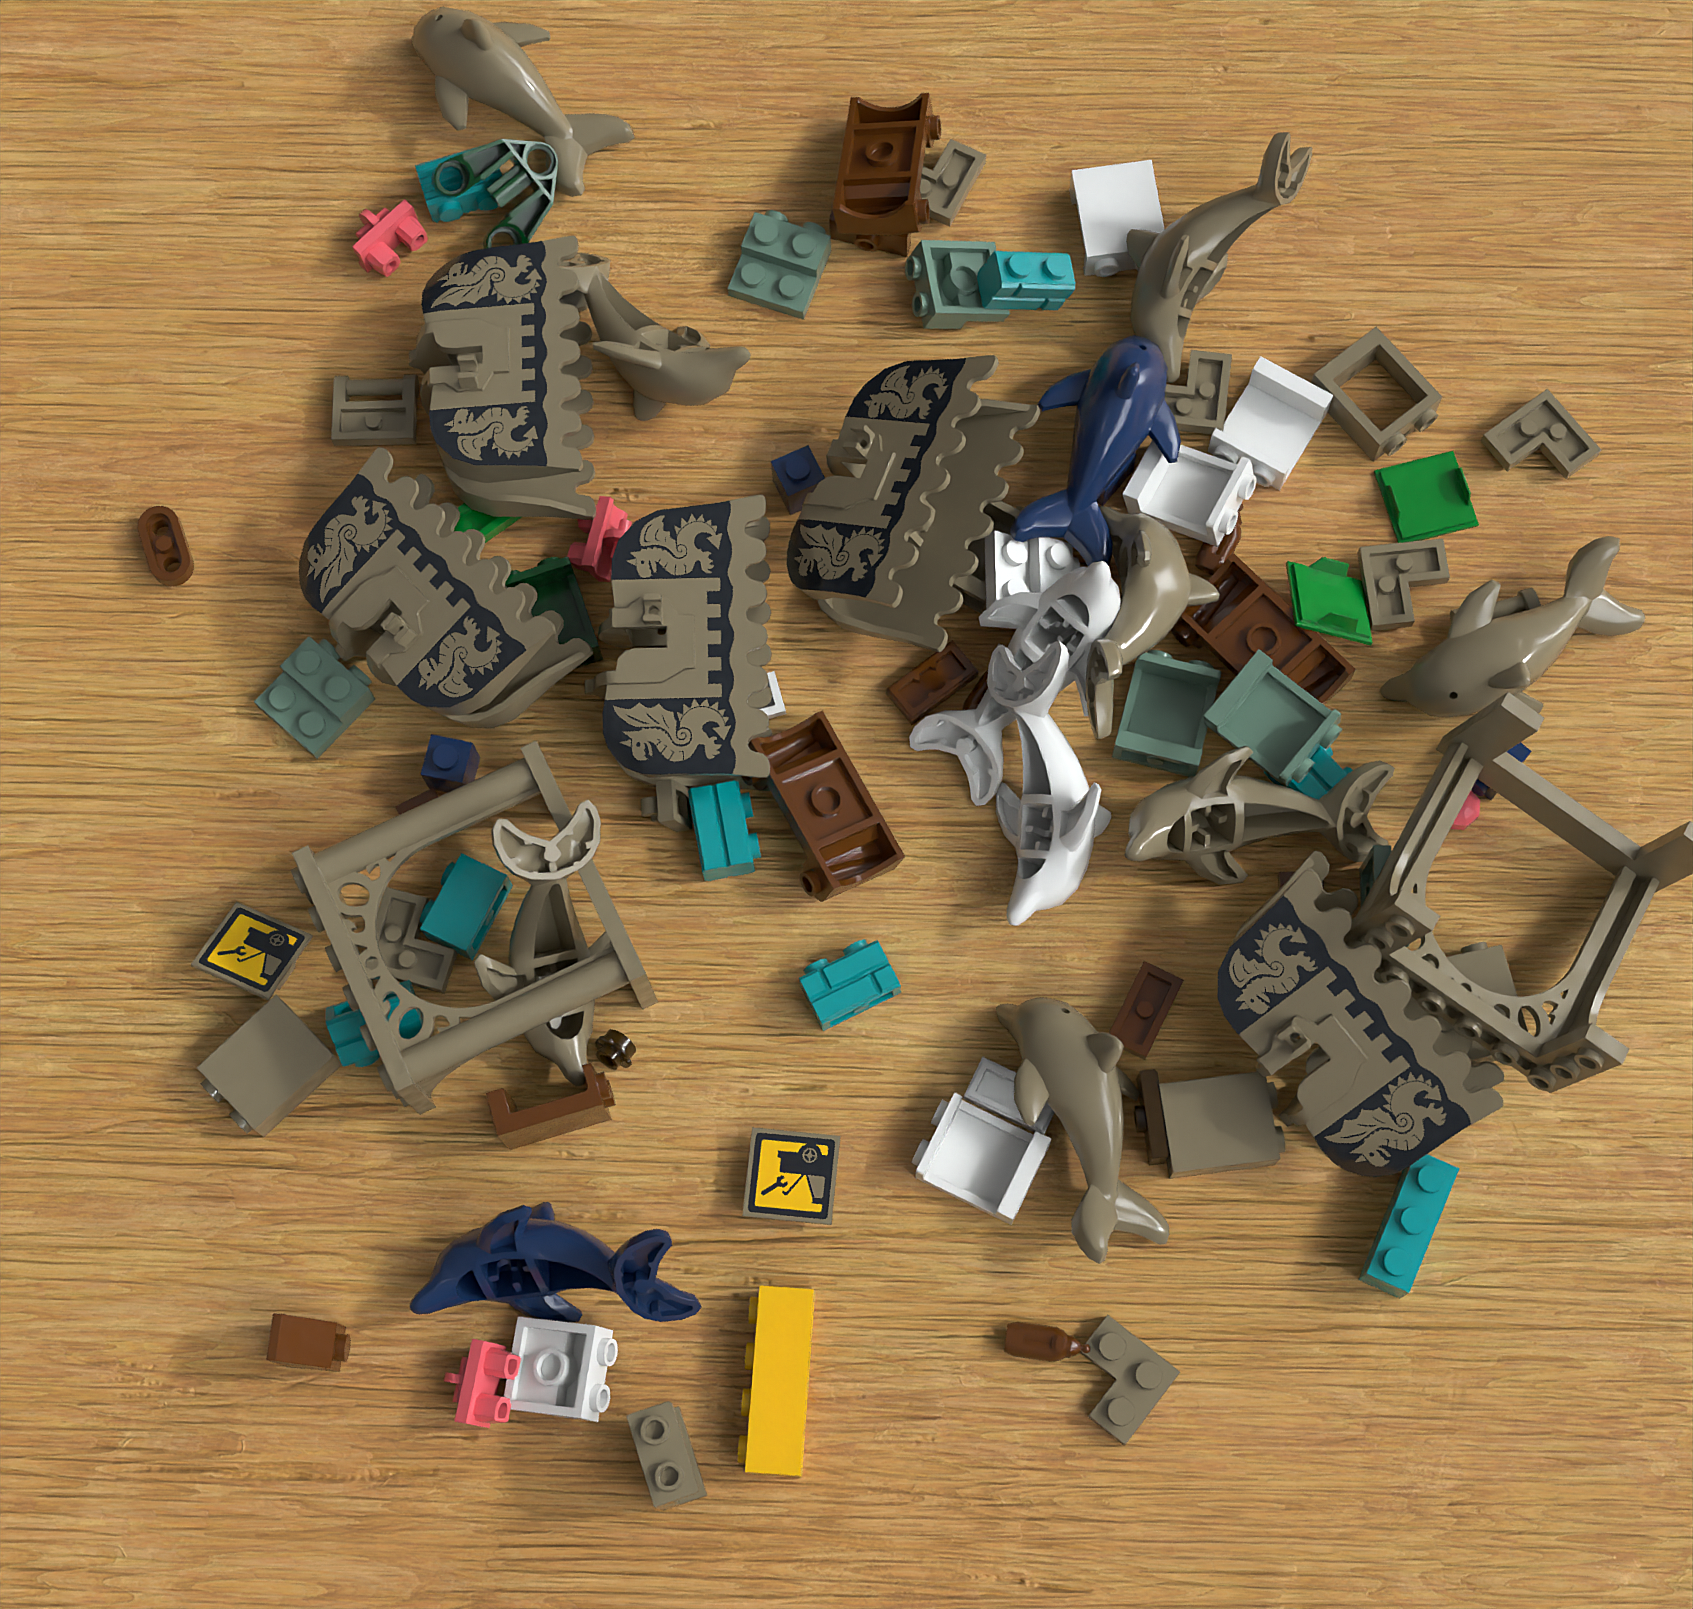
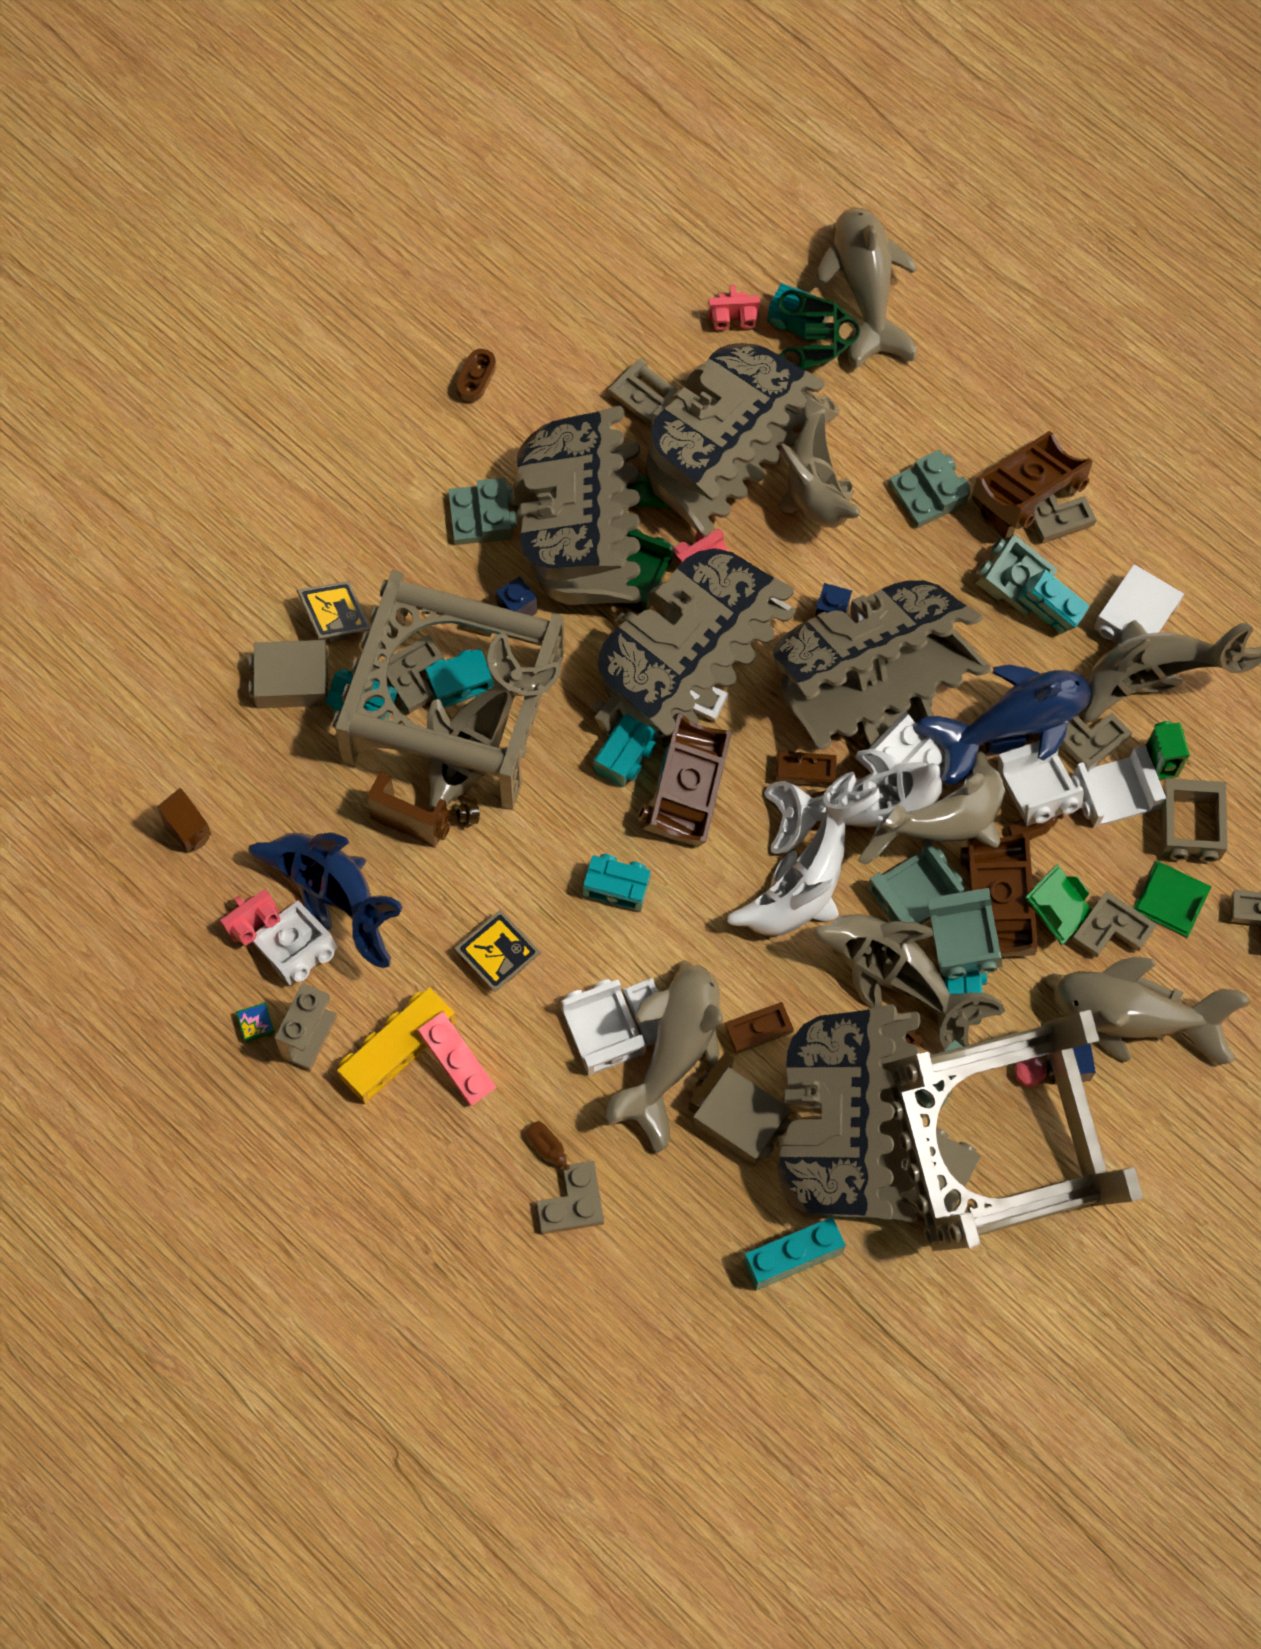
camera: 35 degrees right, 5 degrees down
(597, 1497) = (255, 1022): none -> tile
(860, 1338) = (456, 1058): none -> coral plate
(1288, 339) = (1168, 749): none -> green brick

